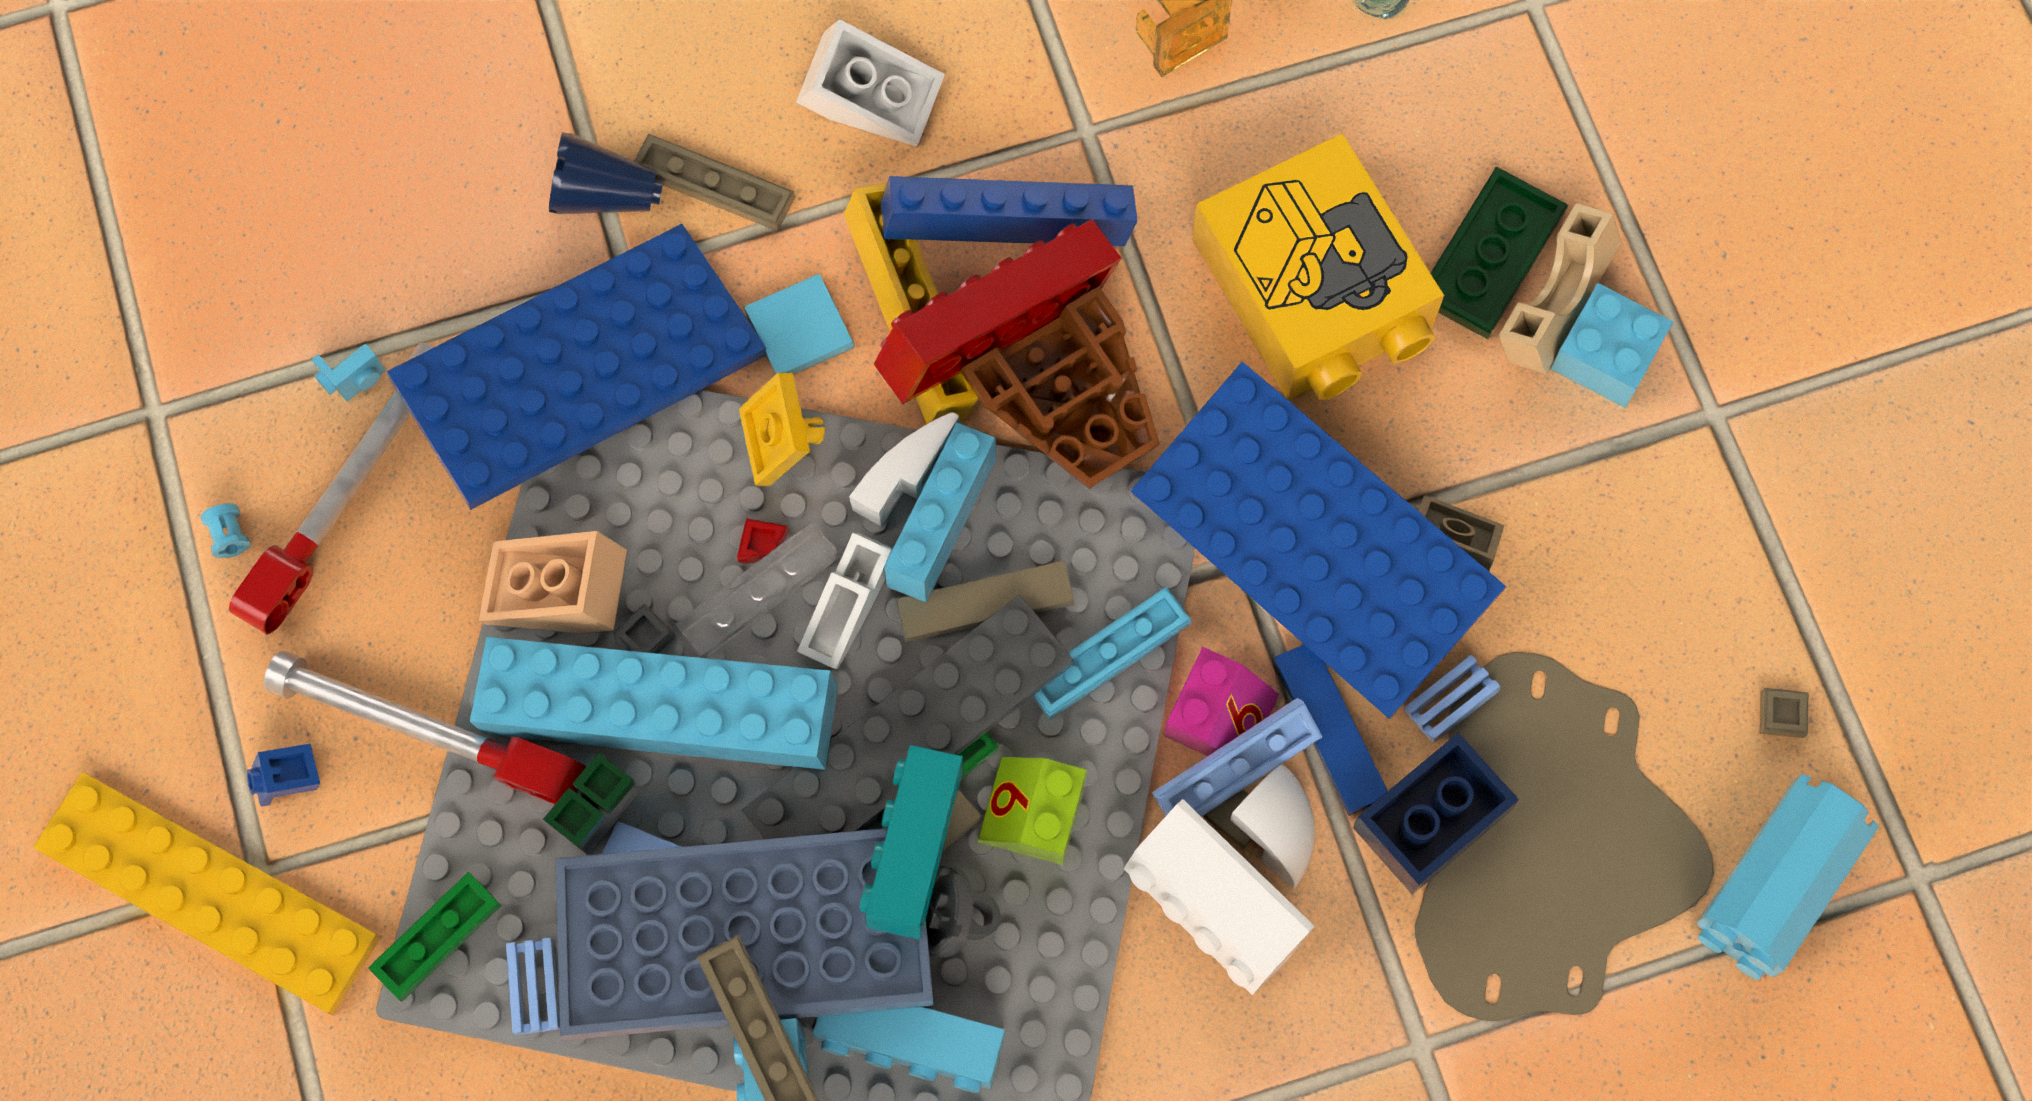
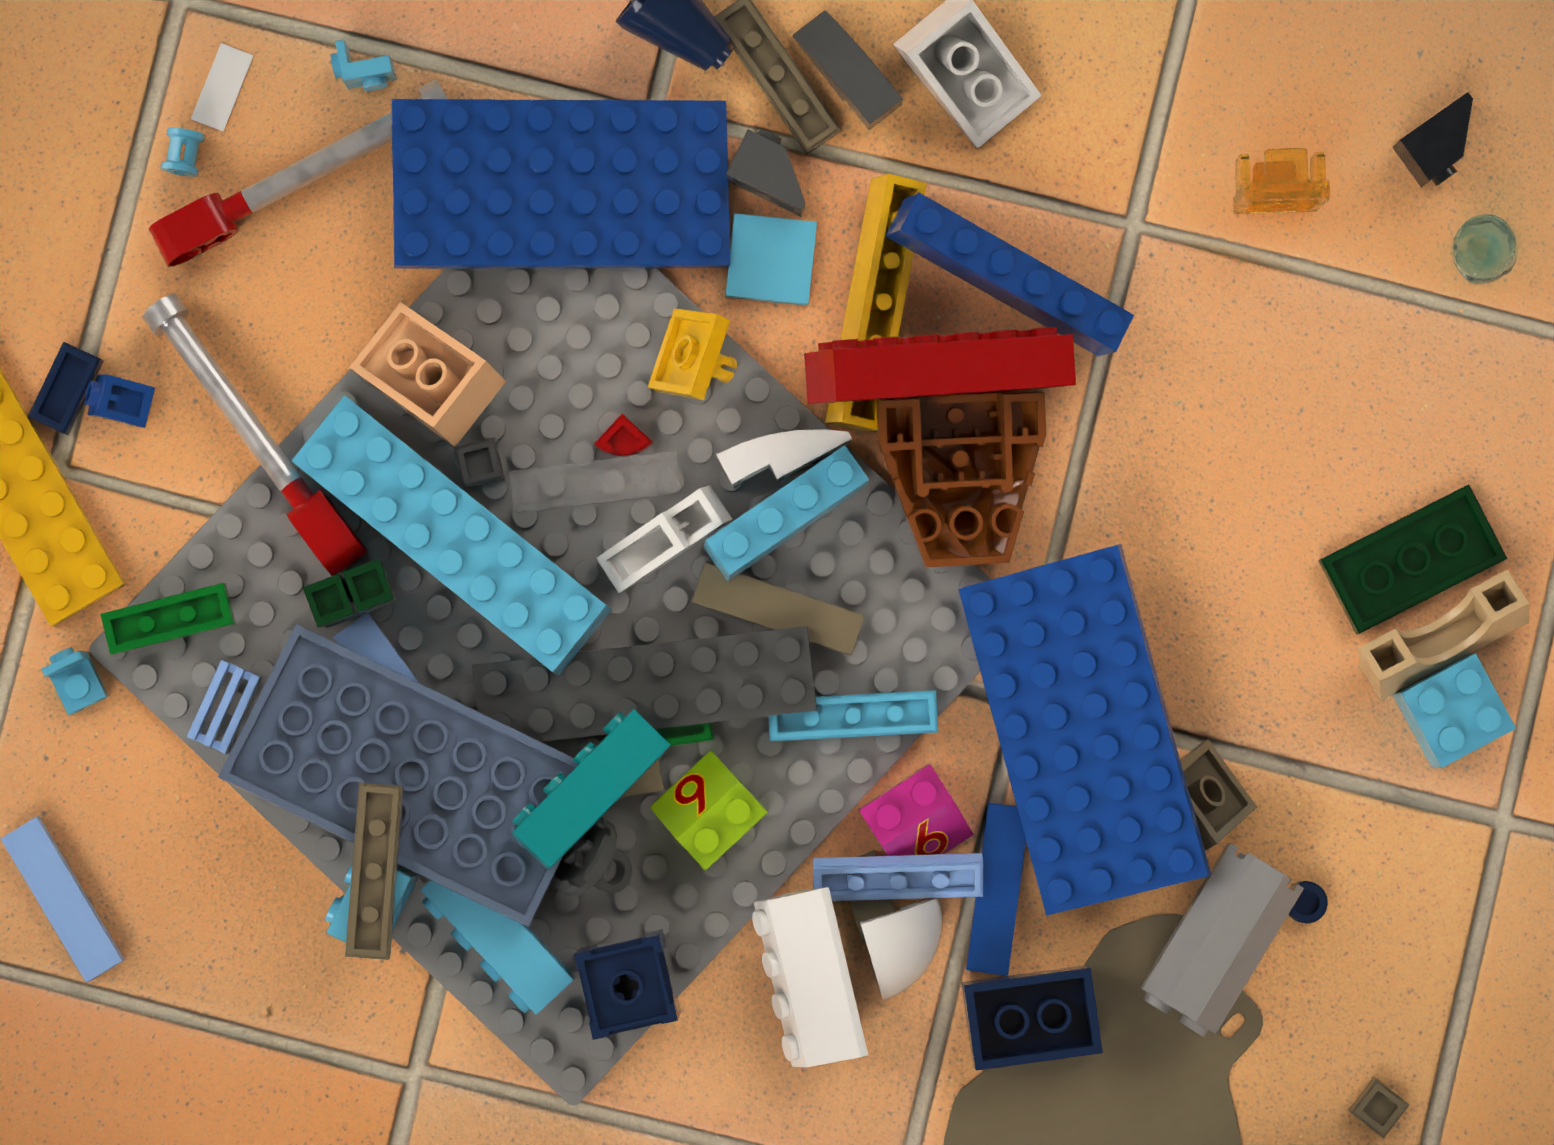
camera: 30 degrees right, 15 degrees up
(227, 795) = (65, 388): none -> dark blue tile
(232, 462) = (222, 87): none -> white sticker
(378, 1049) = (75, 680): none -> medium azure bracket
(753, 258) = (766, 171): none -> dark grey slope
(772, 142) = (848, 69): none -> dark grey slope
(1056, 1024) = (642, 961): none -> dark blue container
(1318, 270) = (1245, 491): yellow brick -> none
(1479, 675) = (1148, 924): light blue tile -> none
(1552, 645) = (1220, 940): none -> light grey brick
(1599, 578) = (1310, 904): none -> dark blue tile

